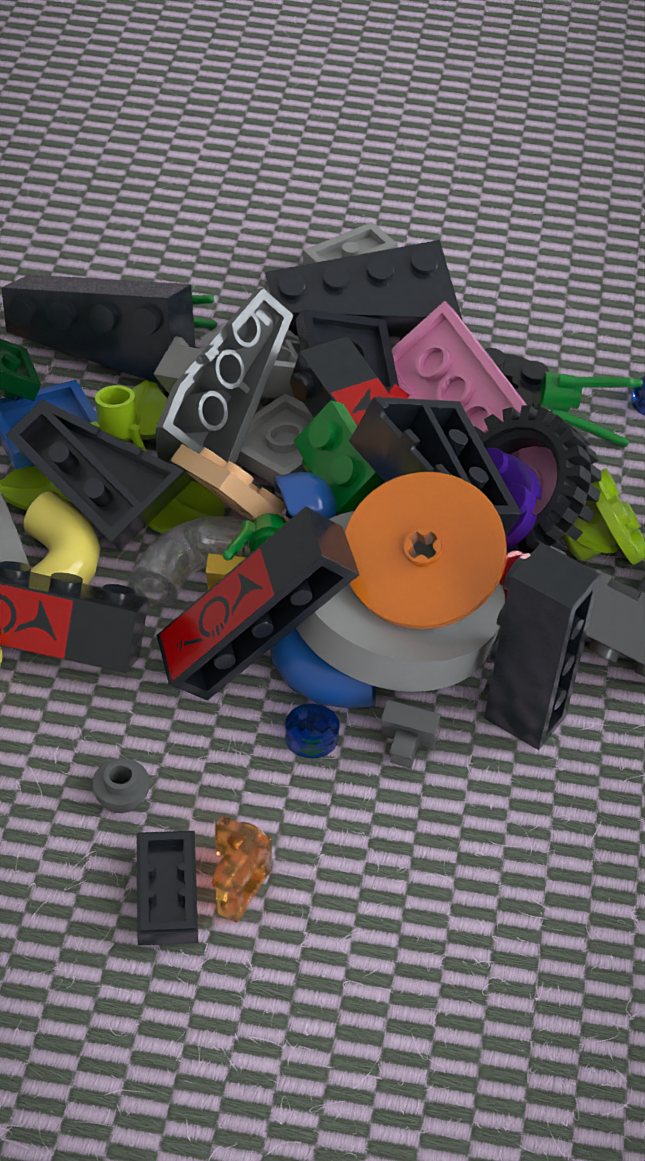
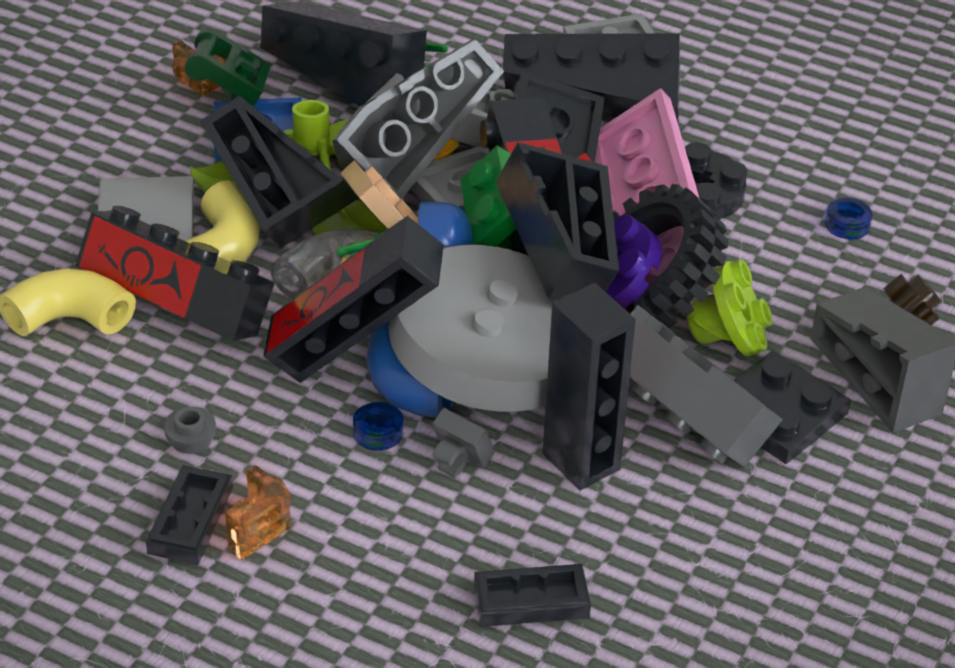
camera: 20 degrees right, 5 degrees down
(466, 546) = (476, 286): orange piece -> none
(553, 883) = (531, 595): none -> black plate
(564, 391) = (748, 192): green plant -> none

